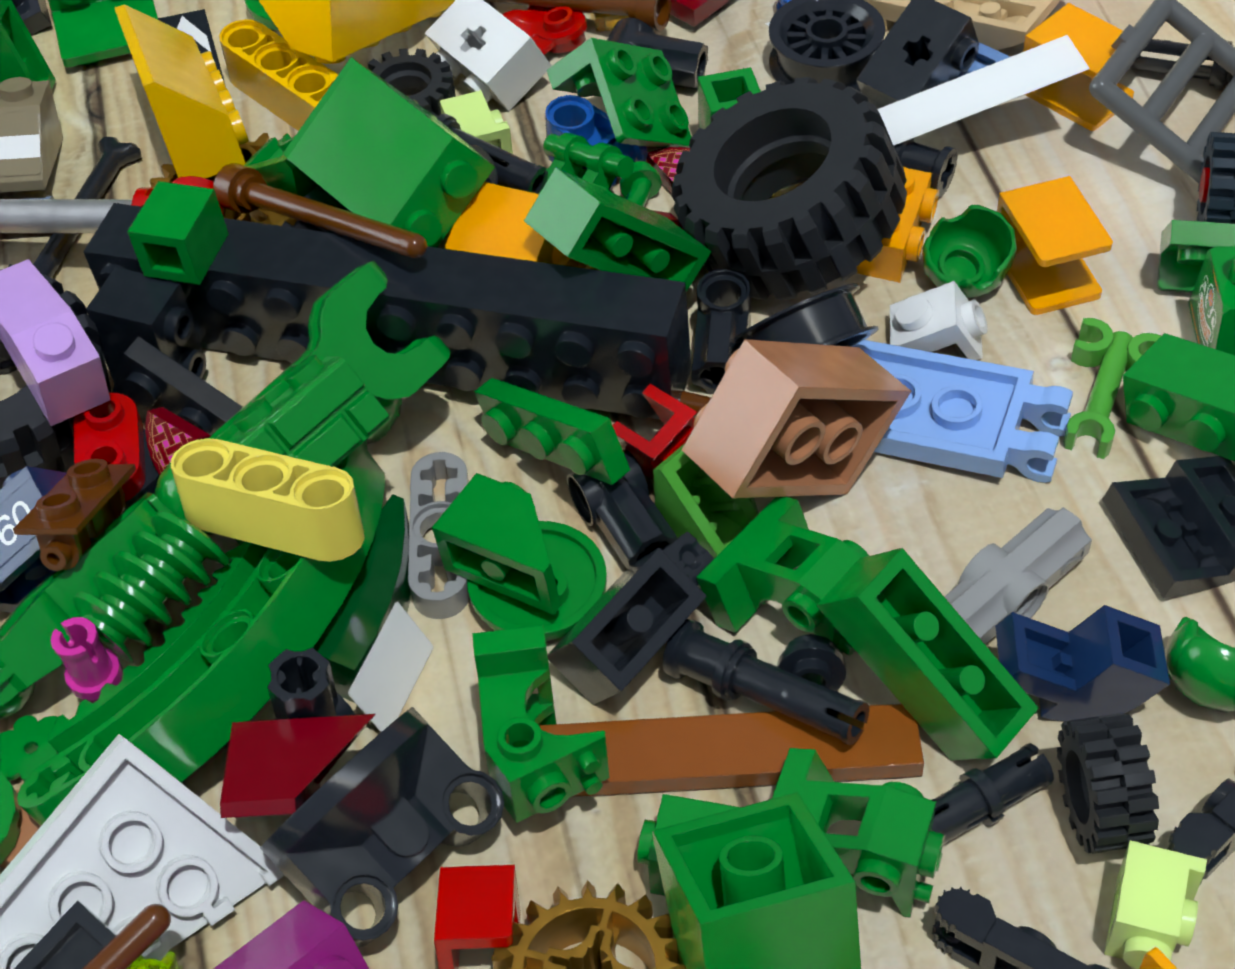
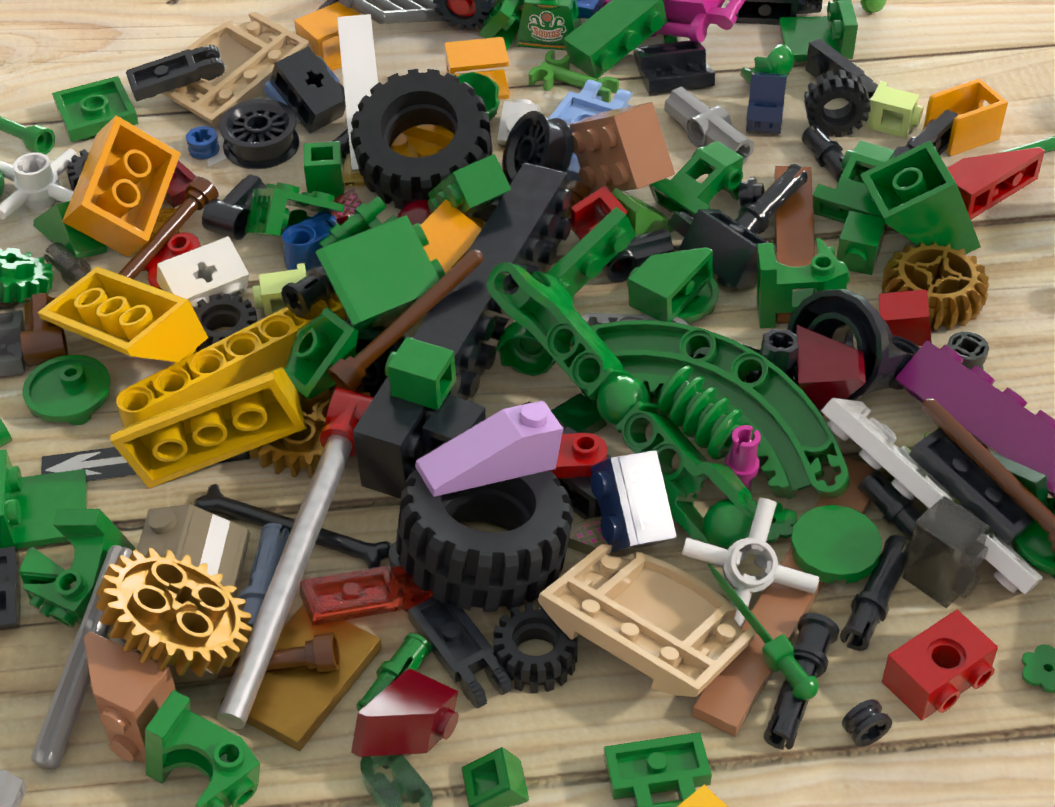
camera: 85 degrees left, 5 degrees down
(76, 511) = (645, 434): reddish brown hinge -> none
(167, 434) = (579, 413): dark red tile -> none
(268, 499) = (671, 329): light yellow beam -> none
(317, 418) = (609, 321): green brick -> none
(928, 656) = (772, 134): green brick -> none

